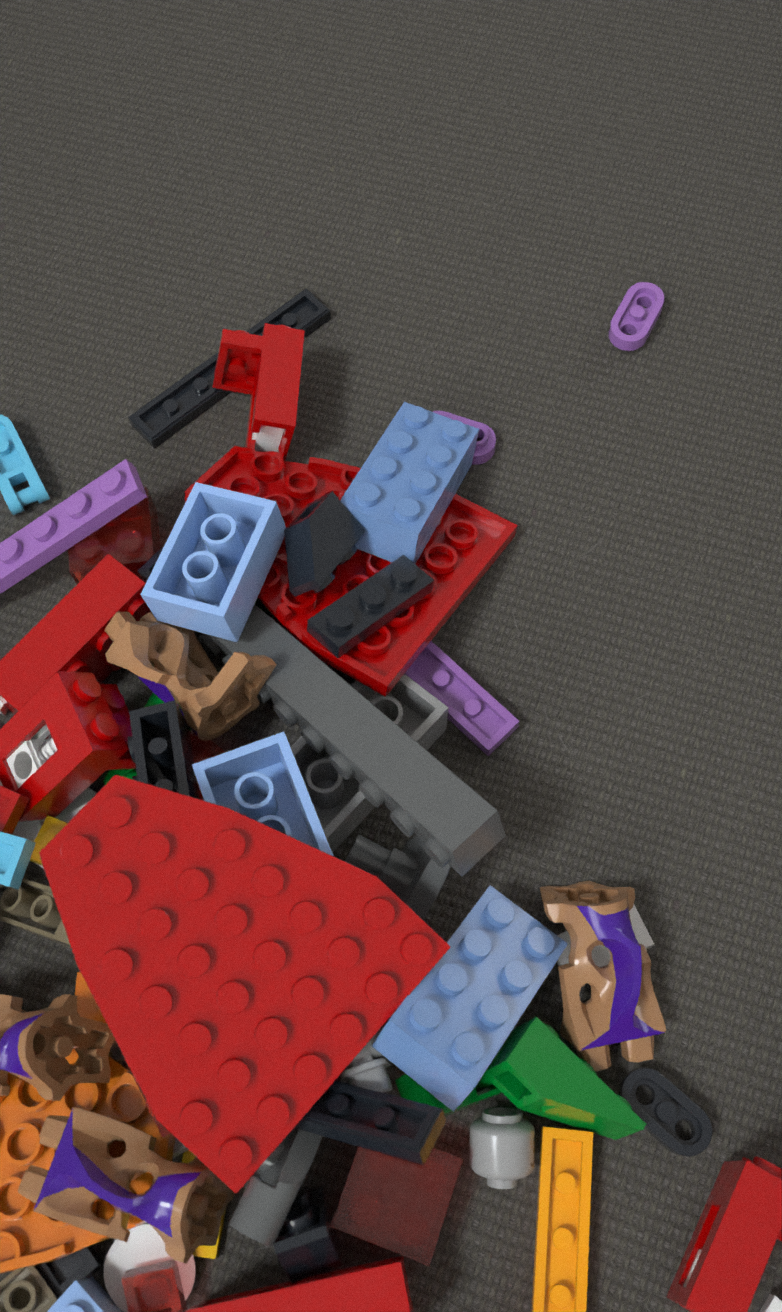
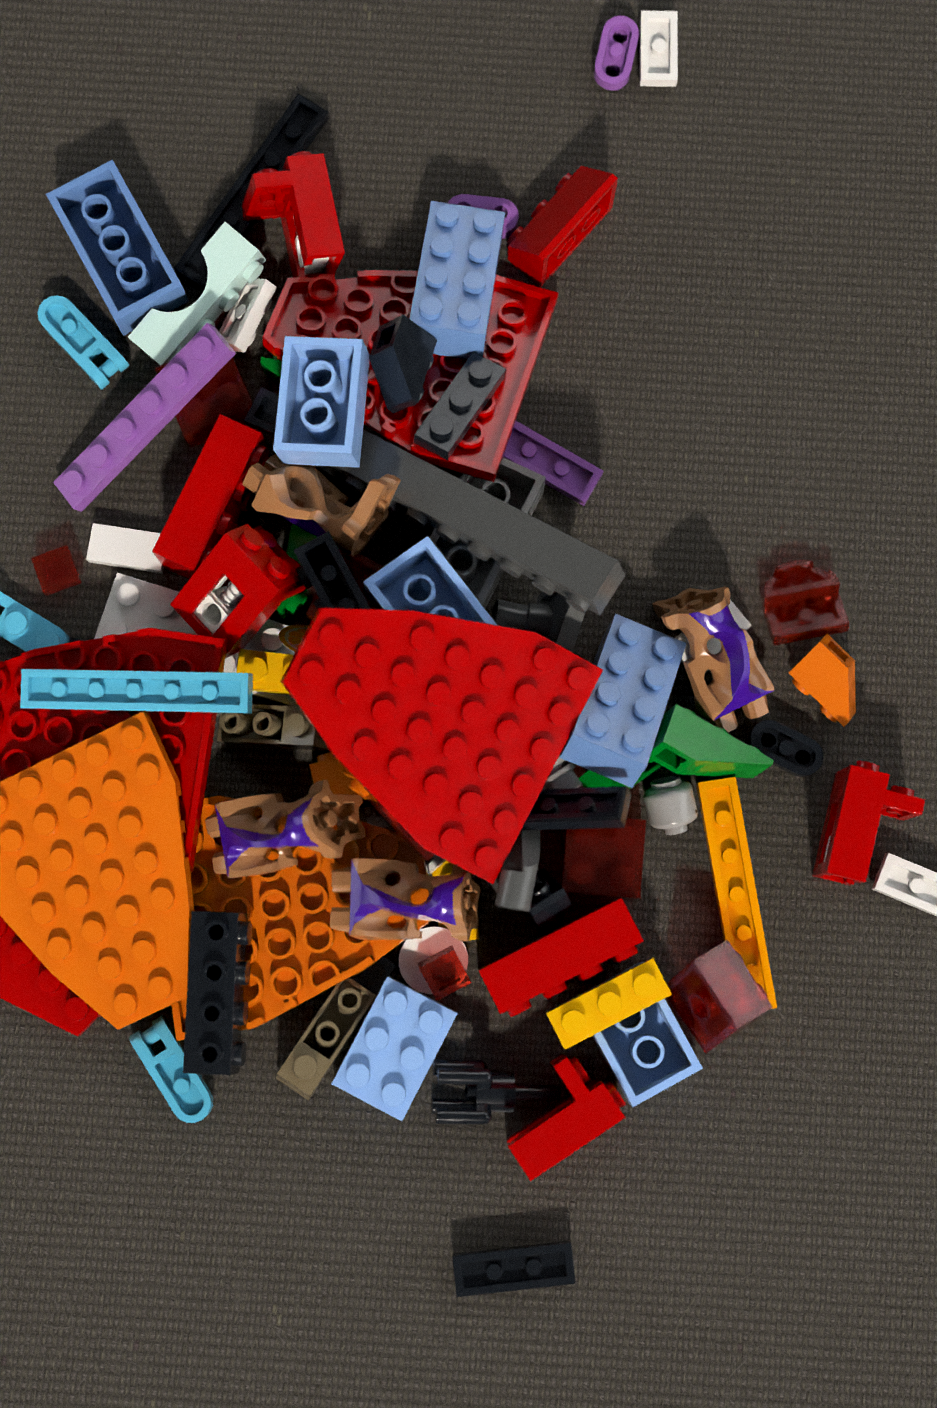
camera: 20 degrees left, 15 degrees up
(75, 384) = (117, 246): none -> medium blue brick
(171, 486) = (247, 313): none -> white plate
(177, 425) = (230, 265): none -> light aqua arch
(539, 458) = (562, 223): none -> red slope
(681, 321) = (658, 49): none -> white plate
(723, 934) = (802, 603): none -> clear red slope
(739, 1036) = (829, 677): none -> orange slope

